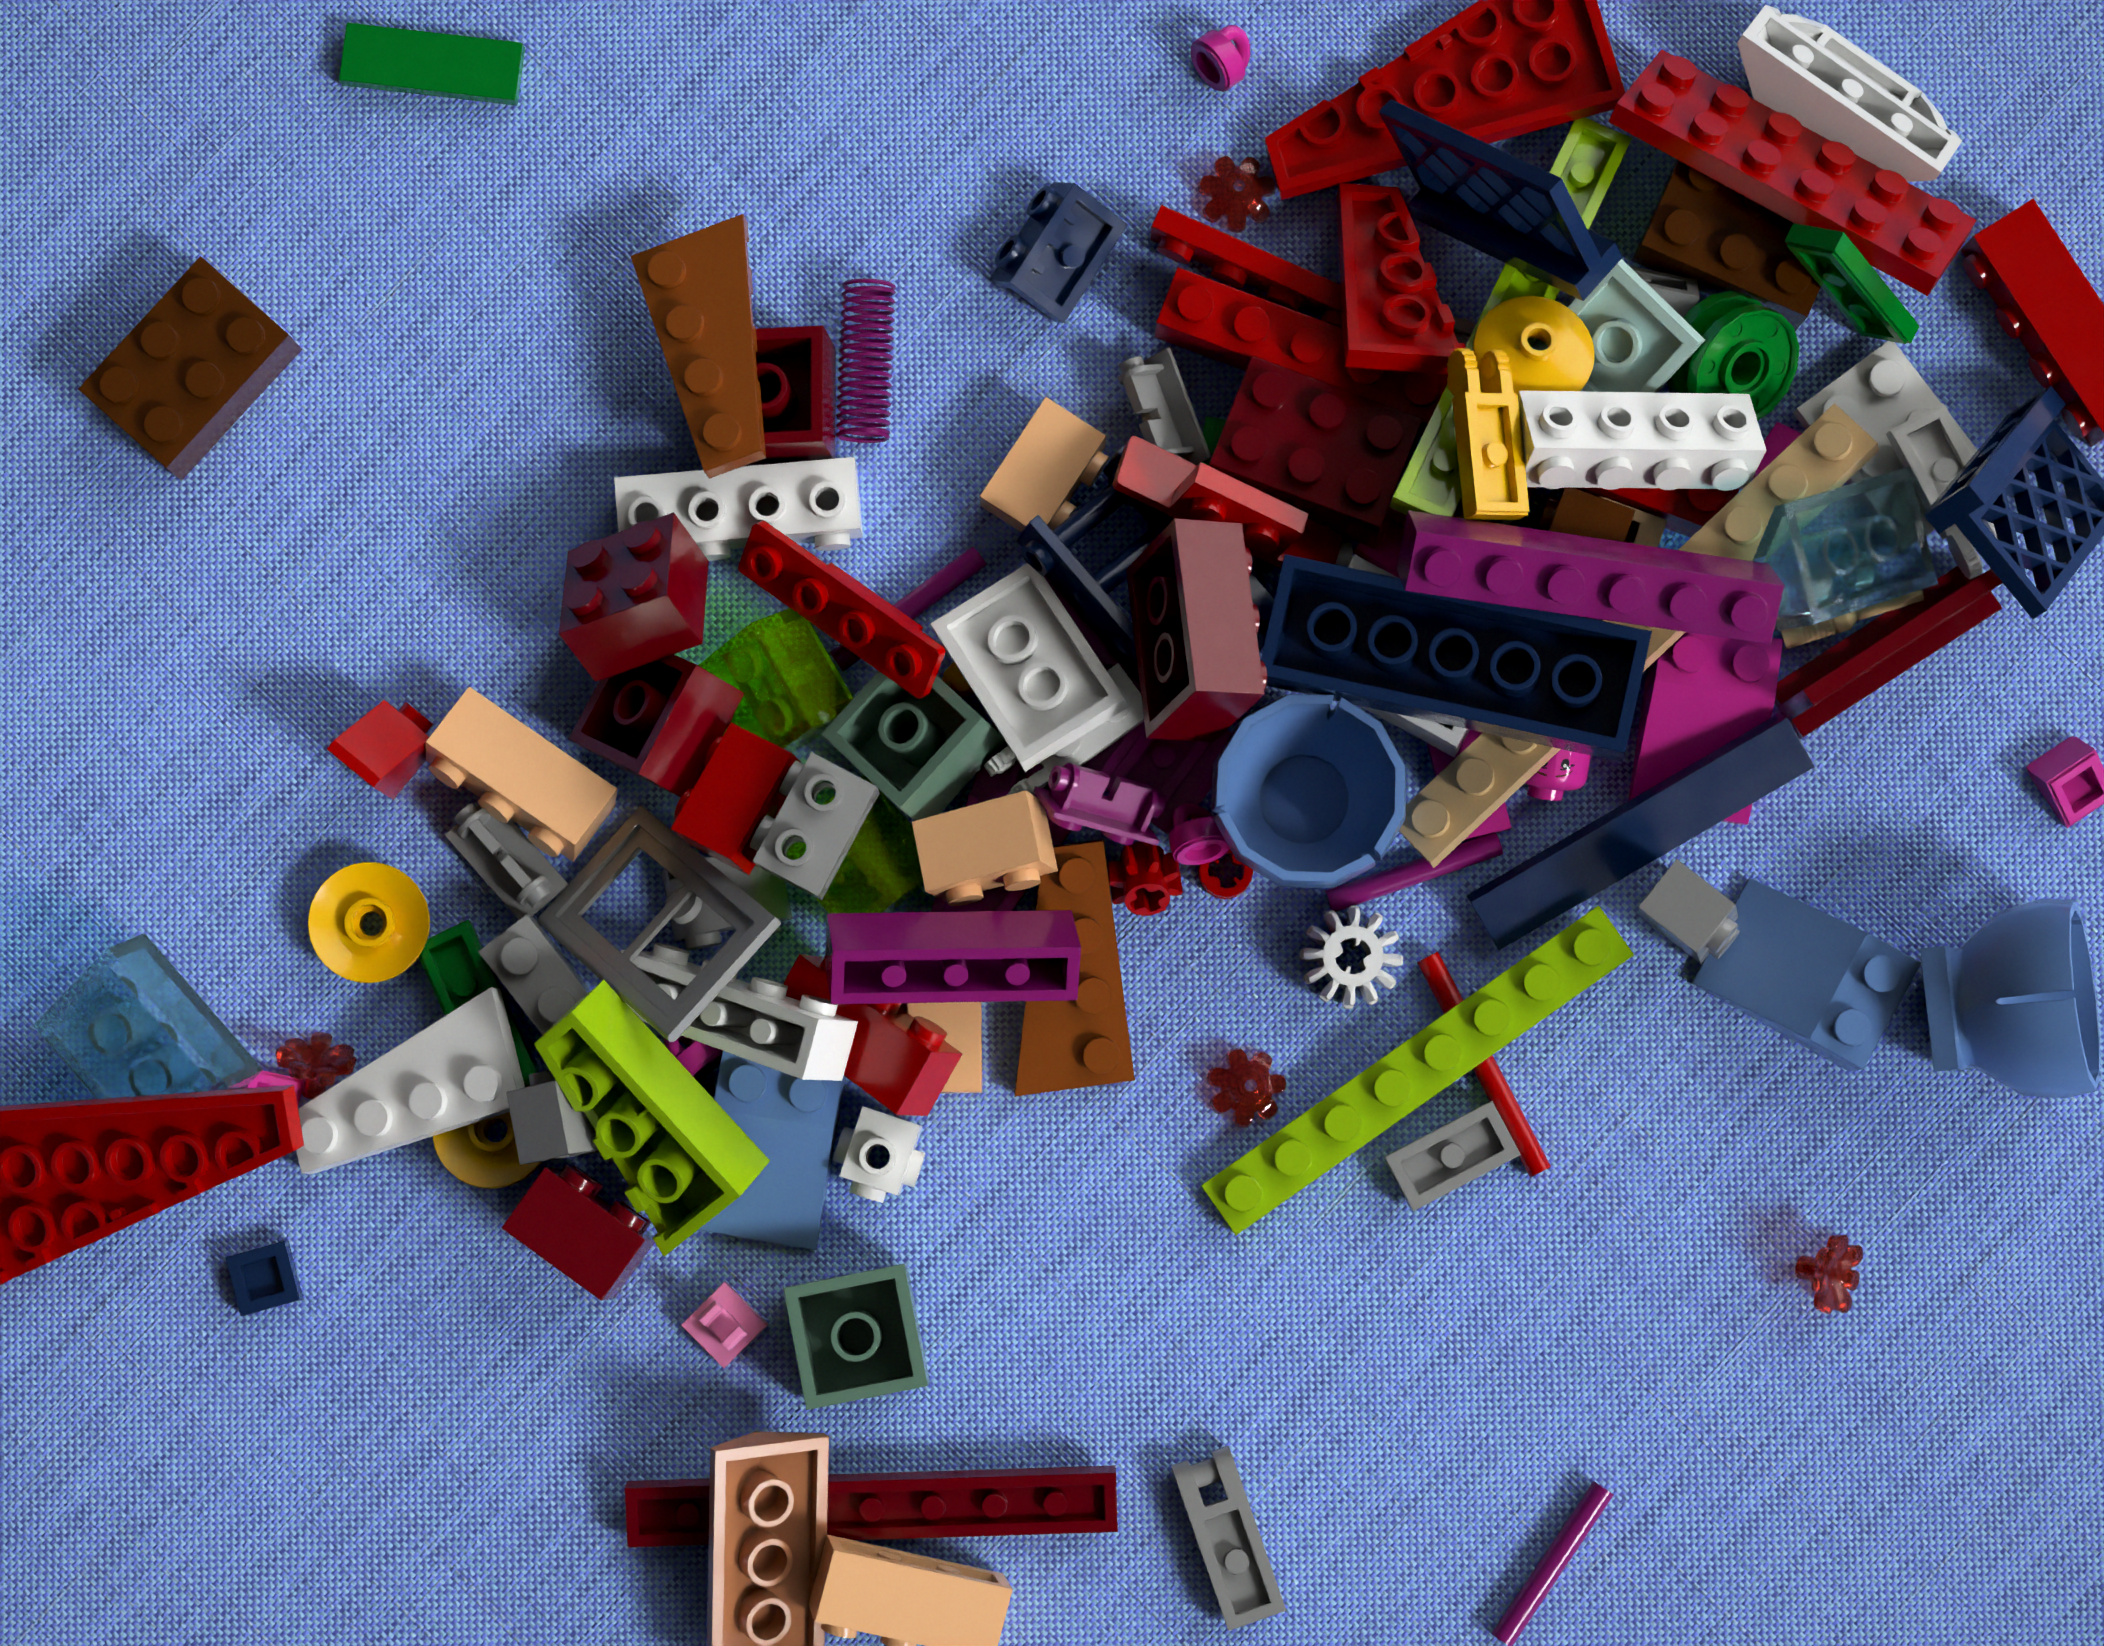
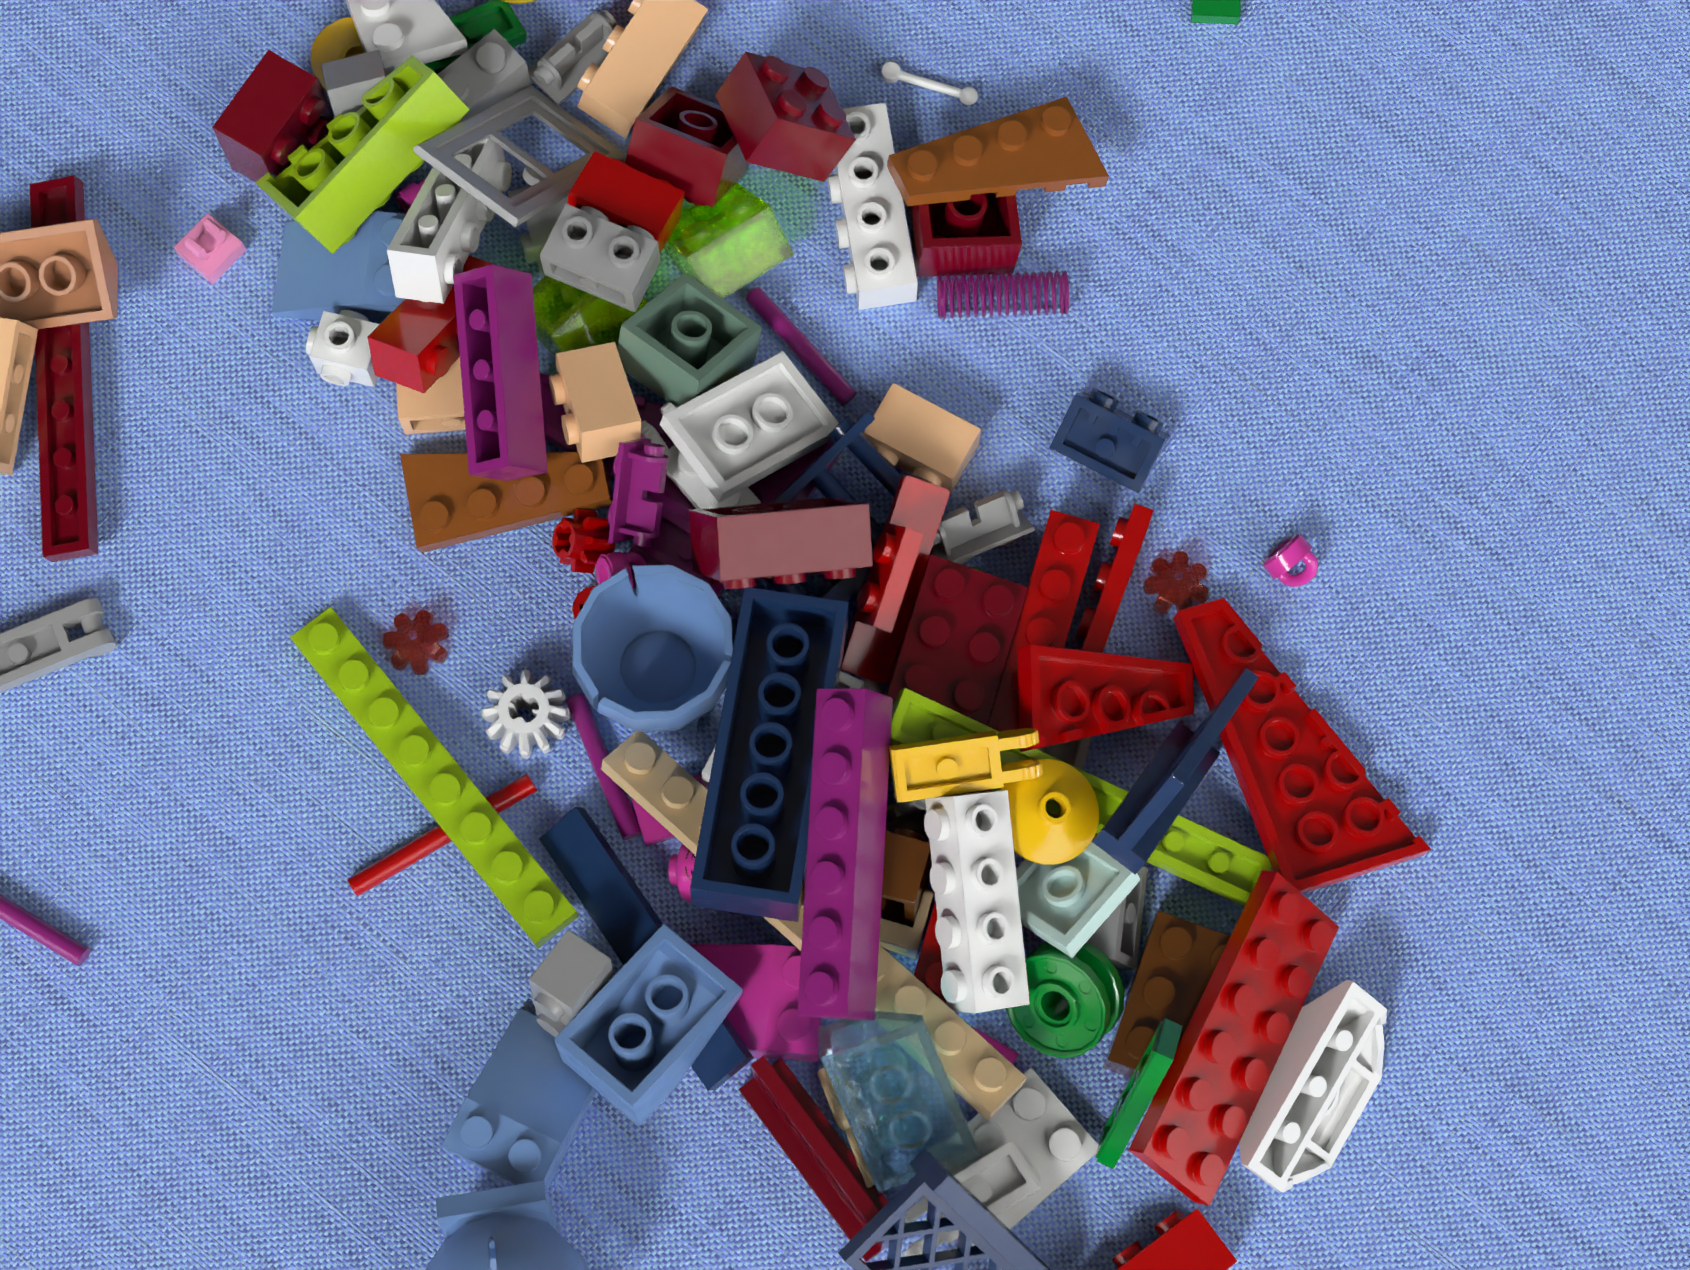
camera: 85 degrees right, 10 degrees down
(555, 472) = (892, 73): none -> white hinge
(842, 609) = (790, 284): red bracket -> none
(856, 1336) = (197, 339): sand green brick -> none
(1451, 1156) = (361, 809): light grey plate -> none
(1739, 823) = (648, 1024): none -> medium blue slope
(1832, 1274) = (267, 1140): clear red plant -> none

